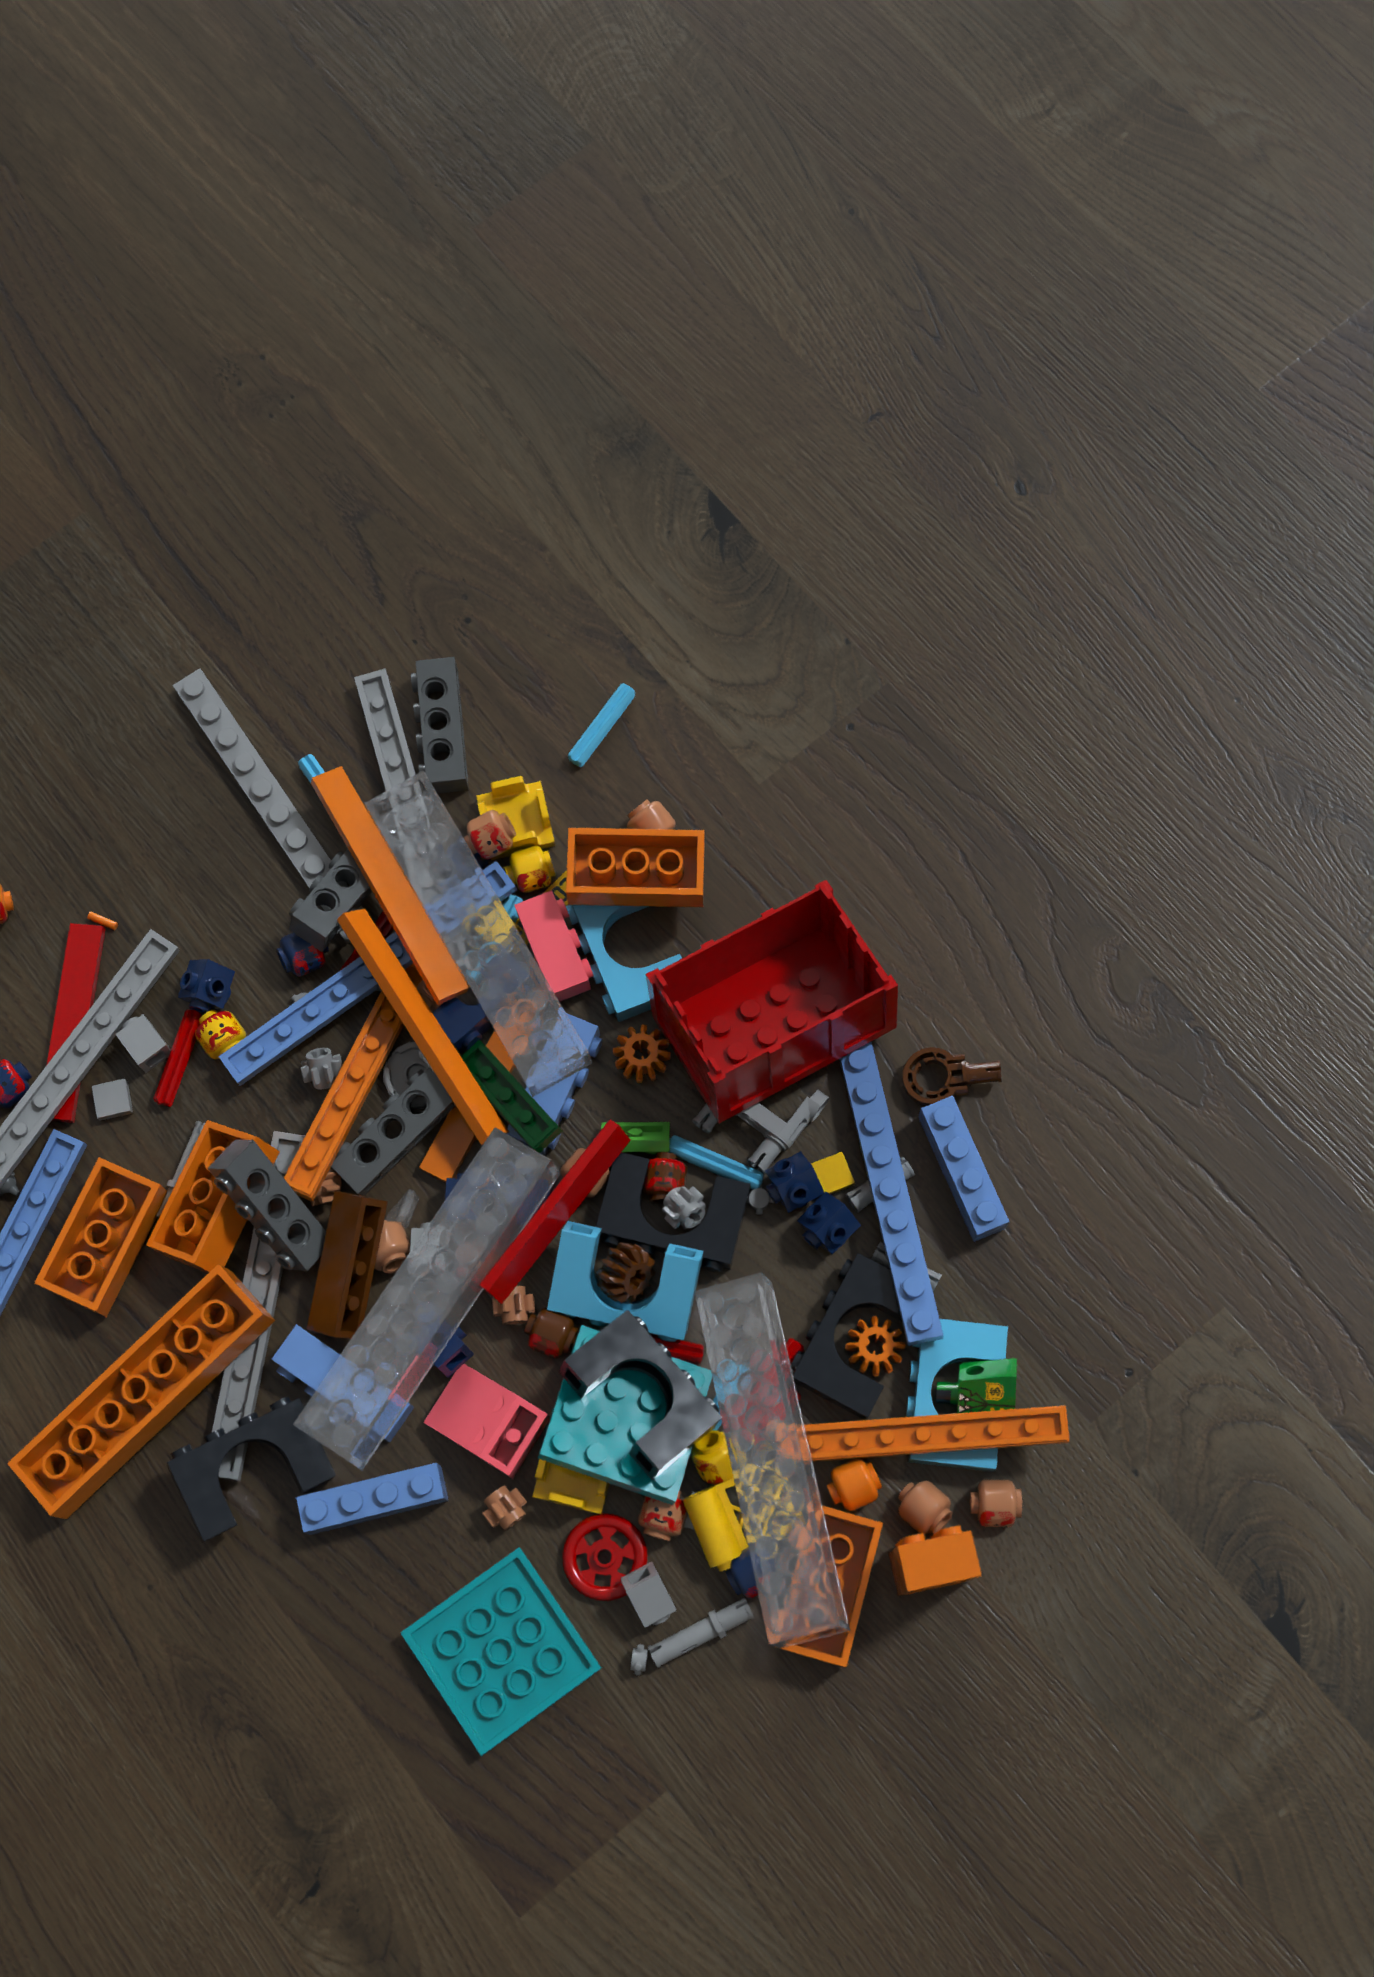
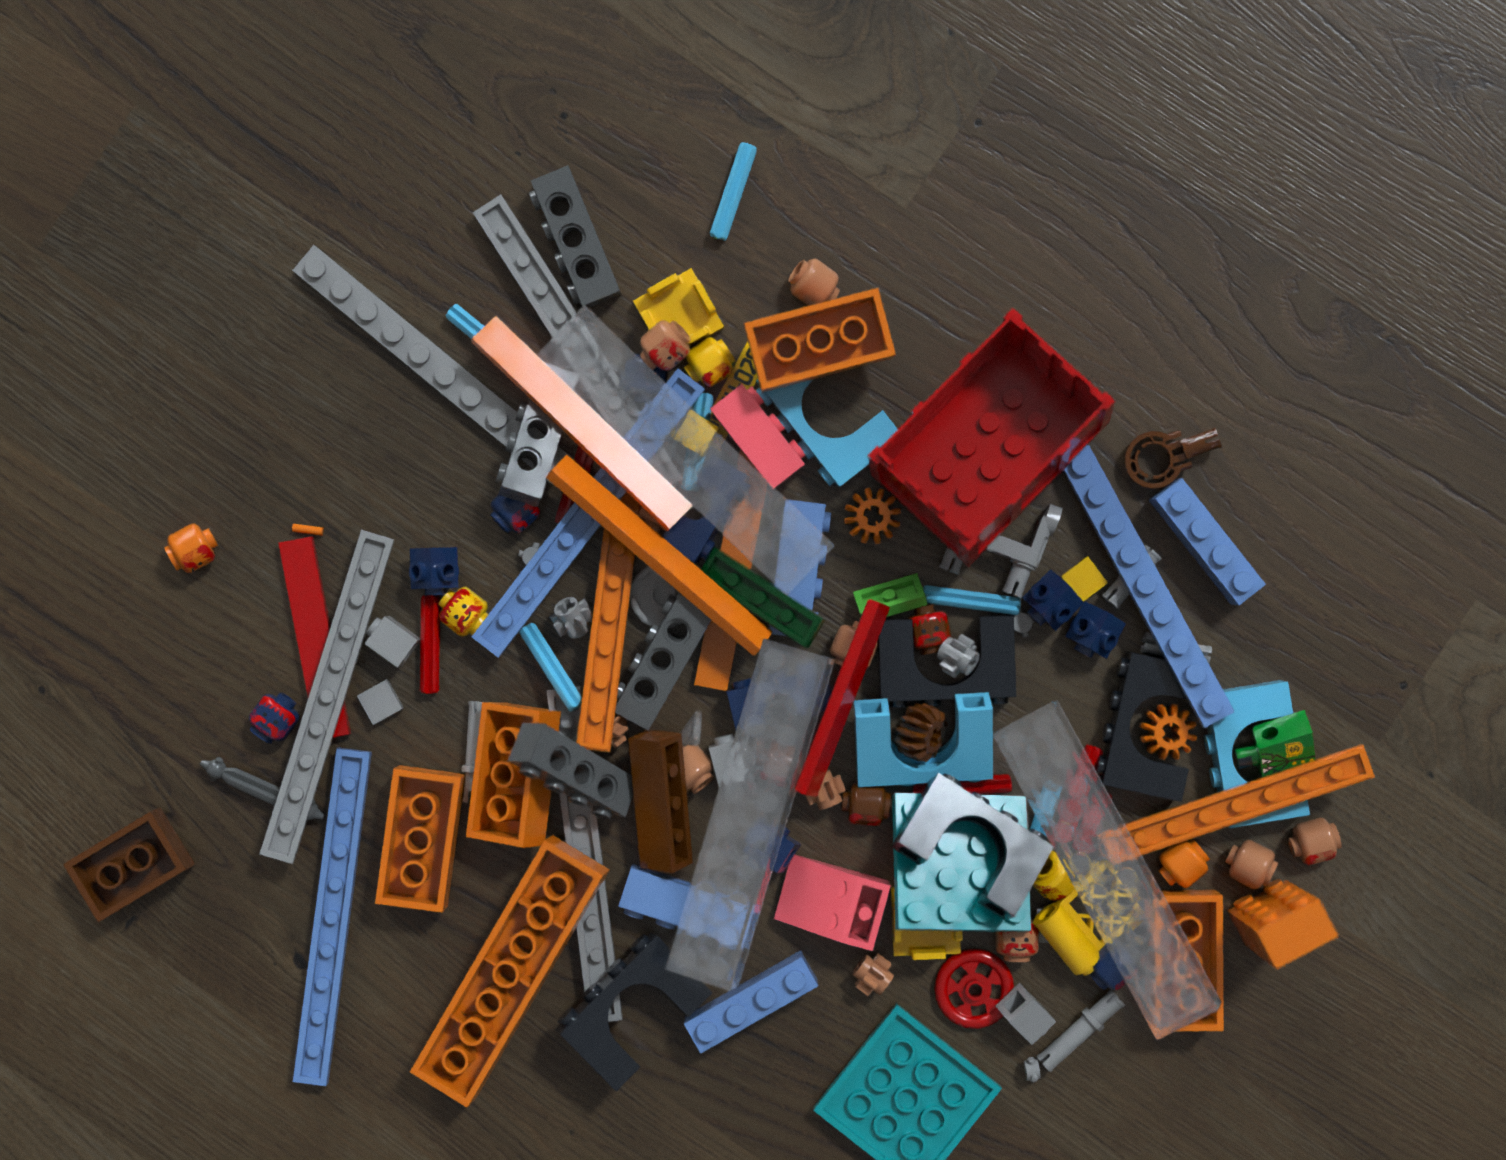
camera: 20 degrees left, 15 degrees up
(285, 1108) = (551, 667): none -> medium azure axle

